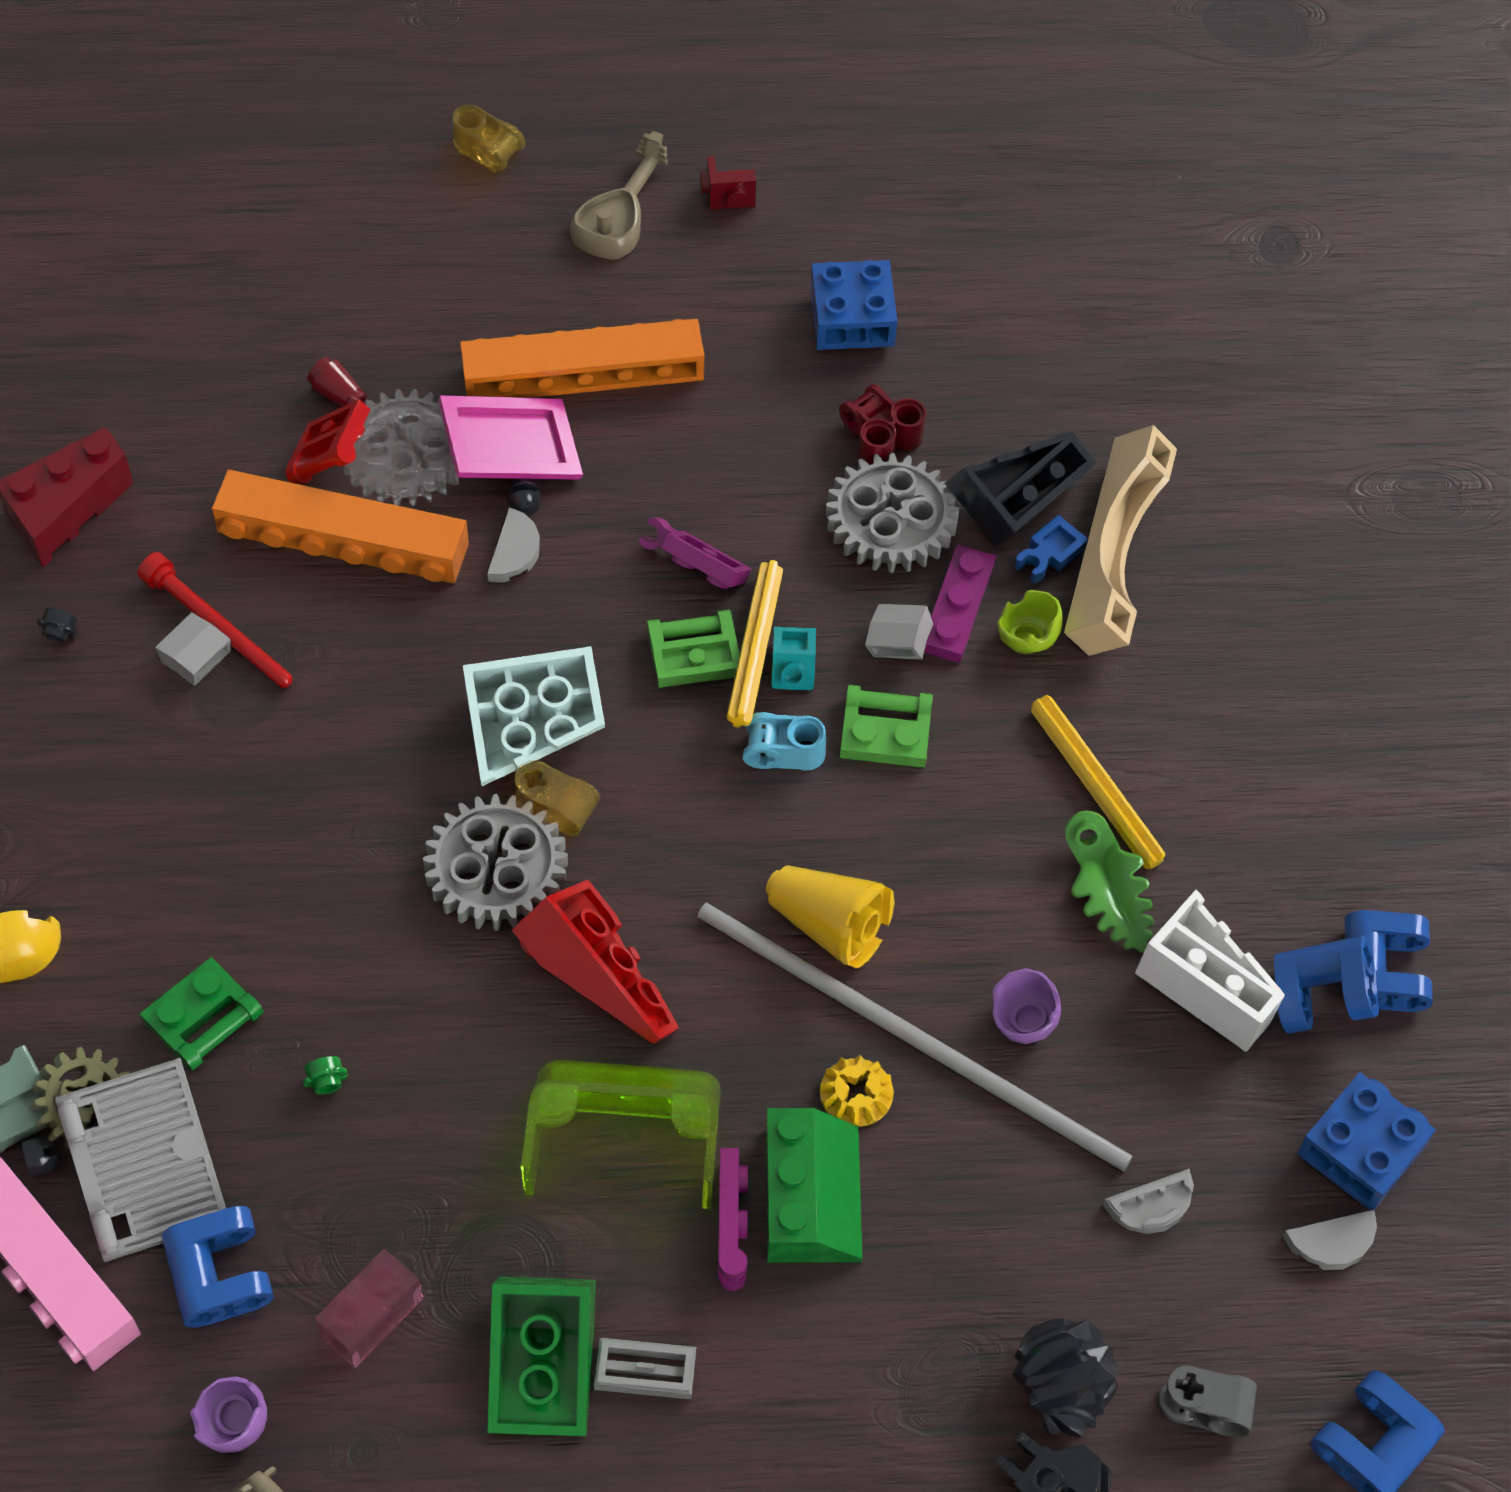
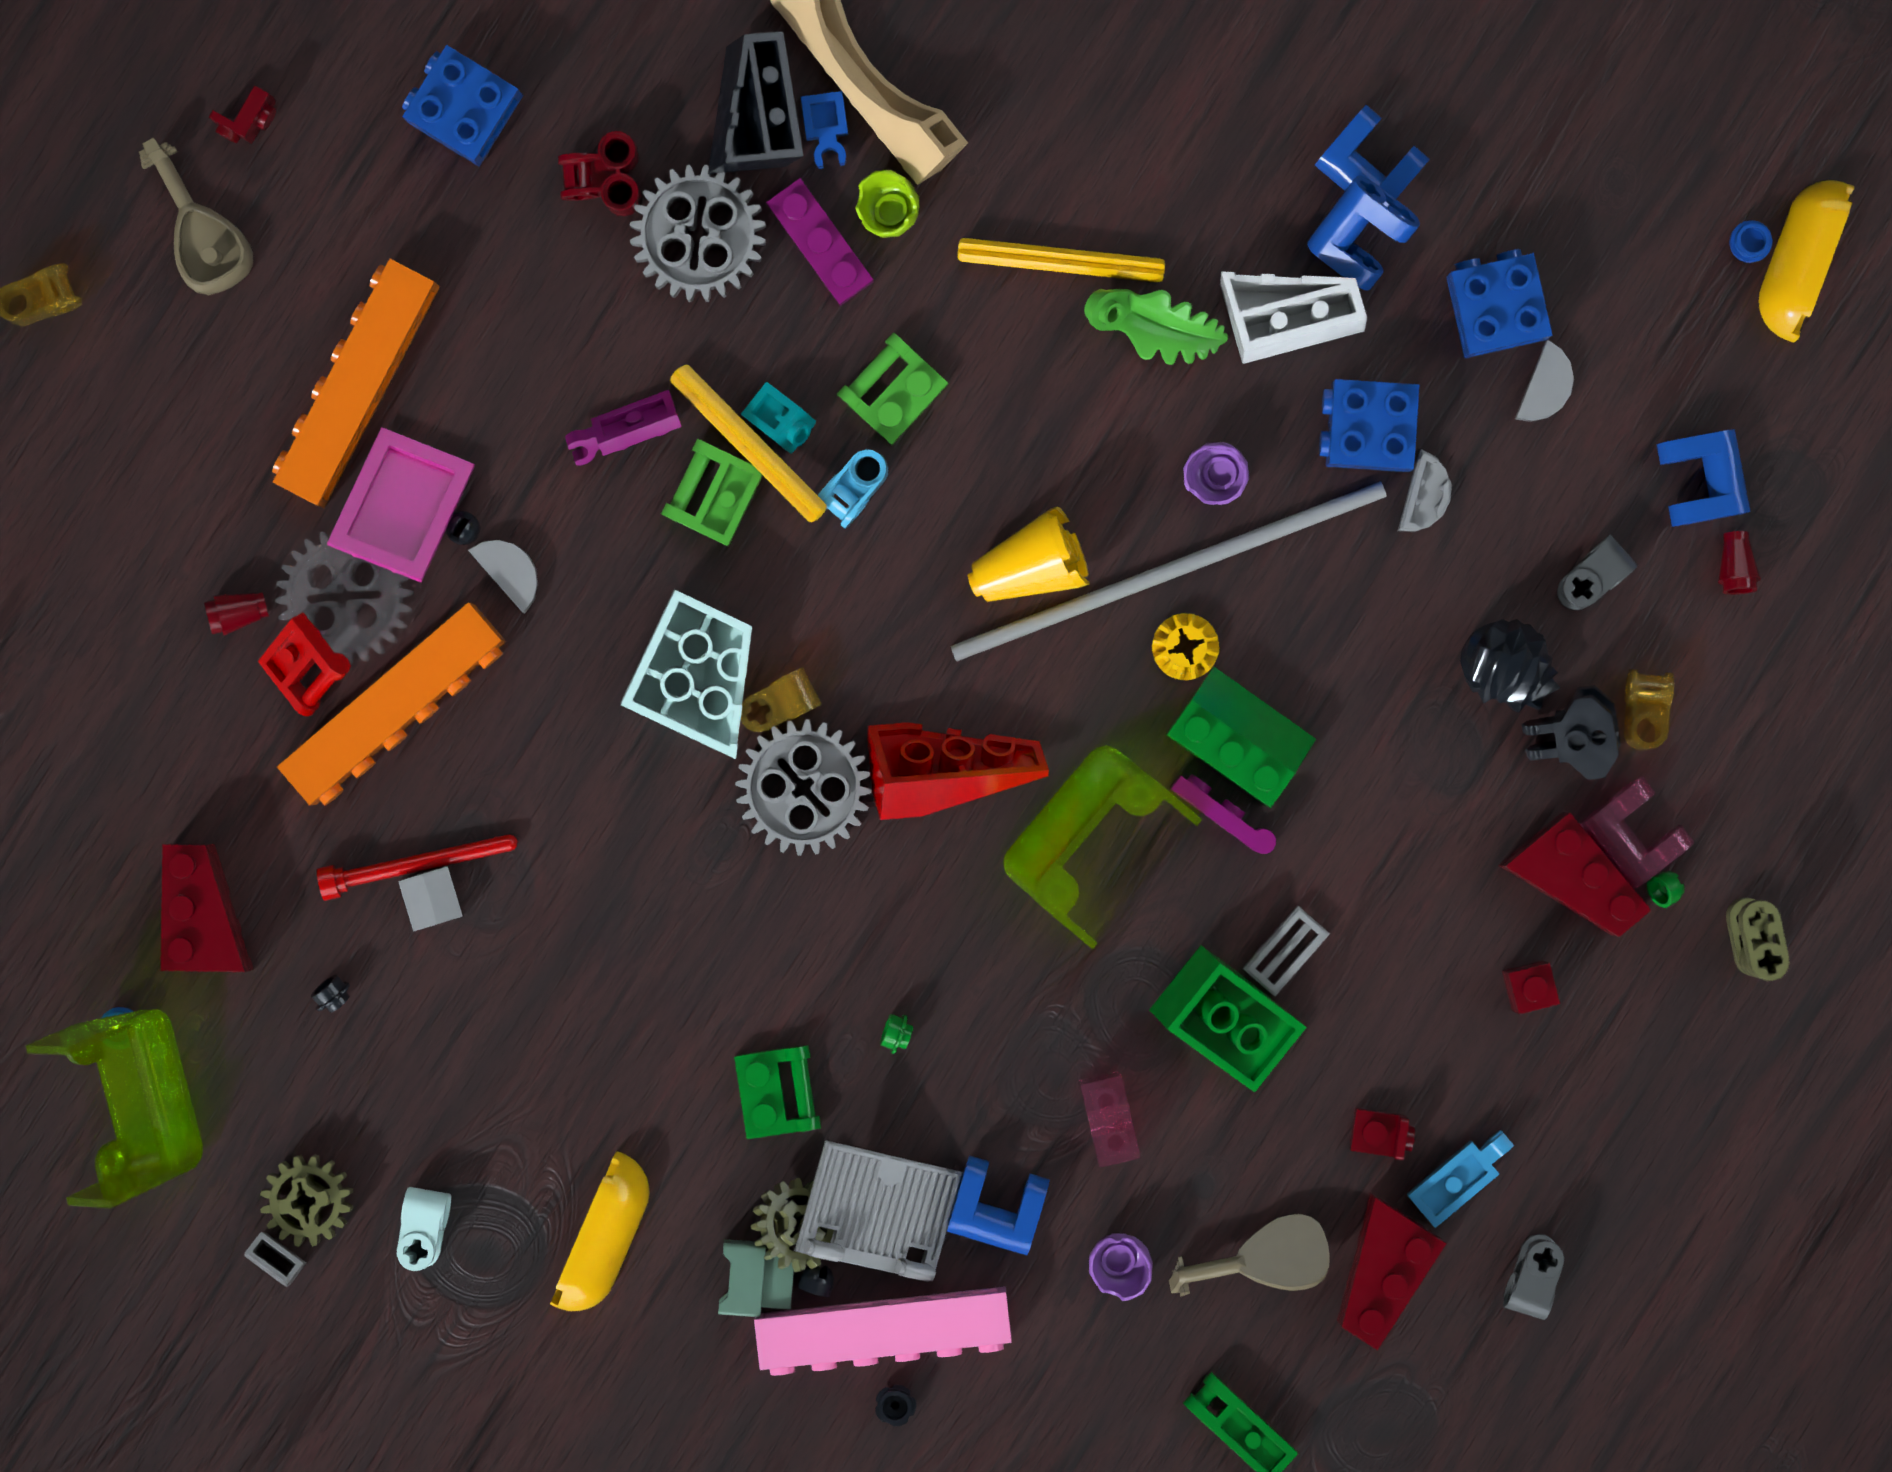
camera: 55 degrees left, 30 degrees up
(899, 631) = (818, 316): light grey piece -> none
(1173, 1105) = (1370, 425): none -> blue brick

